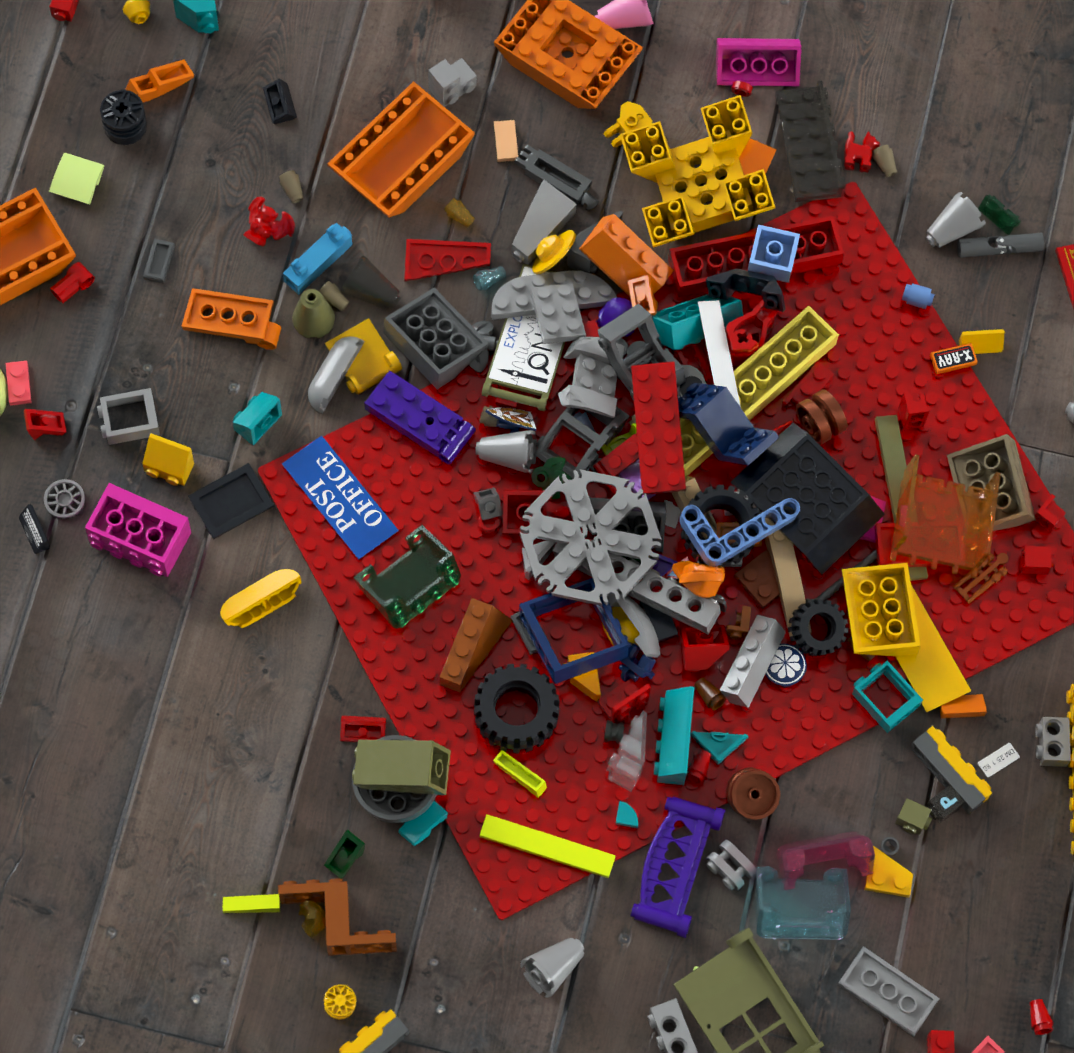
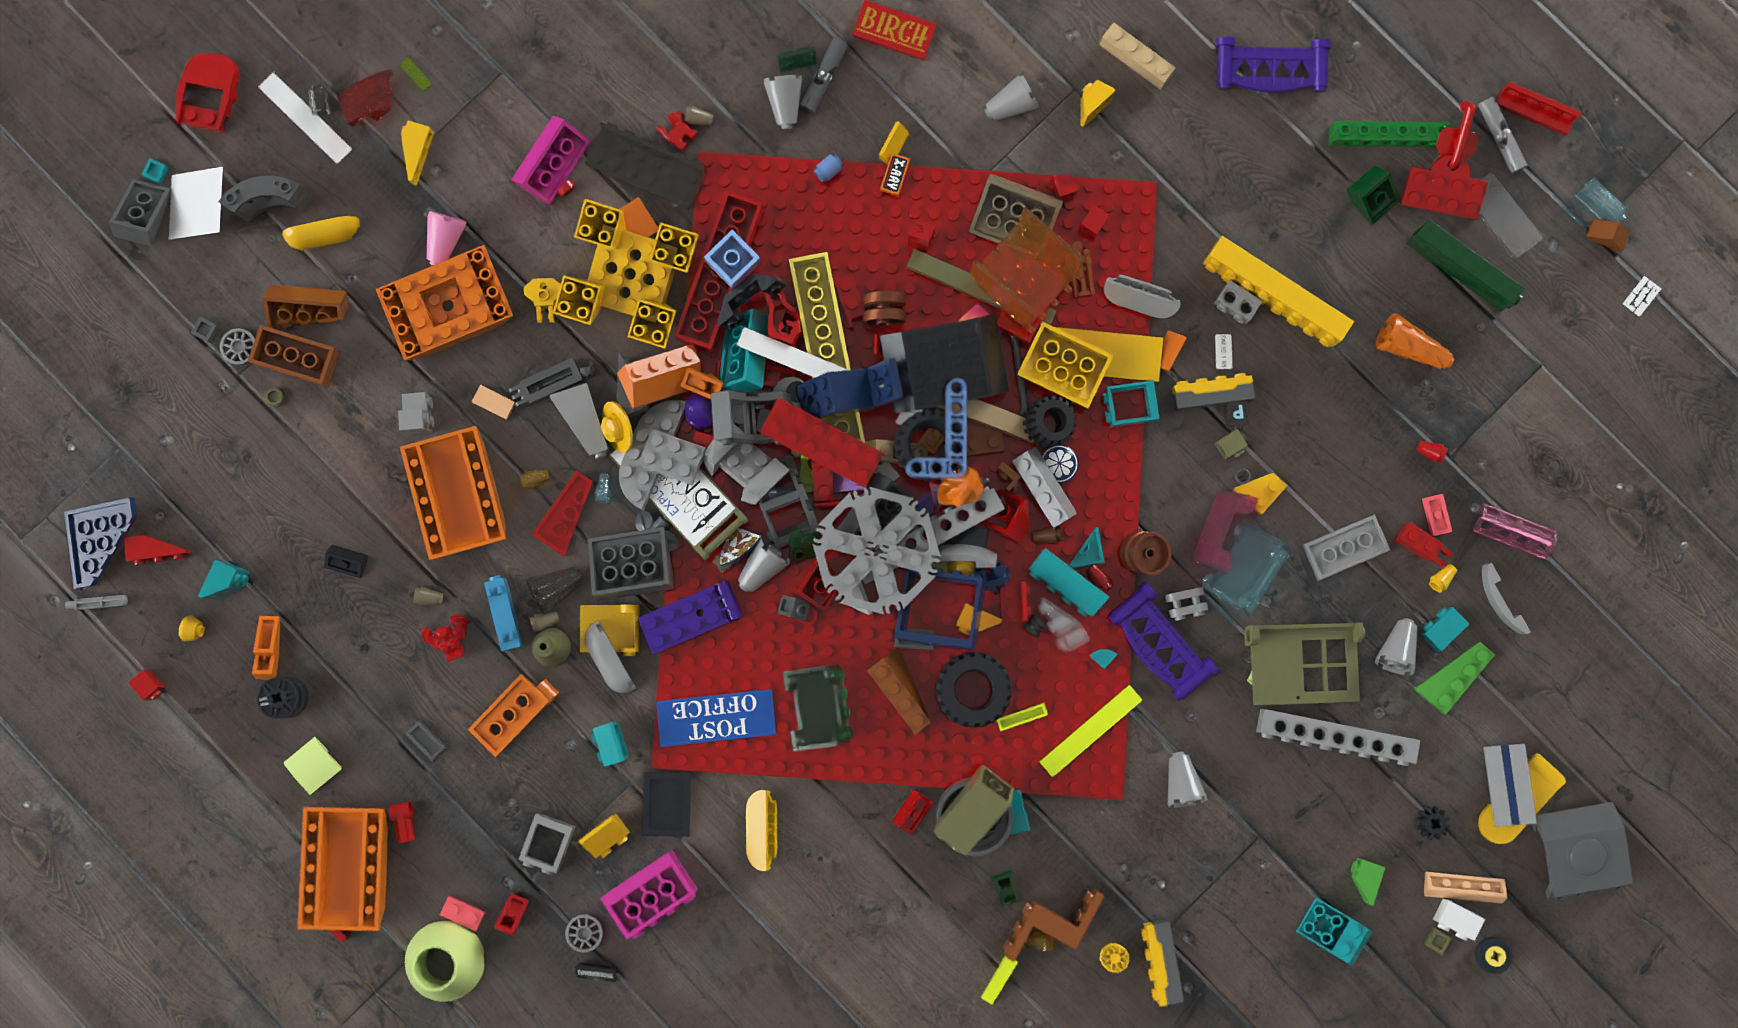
camera: 55 degrees left, 15 degrees up
(995, 644) = (1141, 296): none -> light grey brick

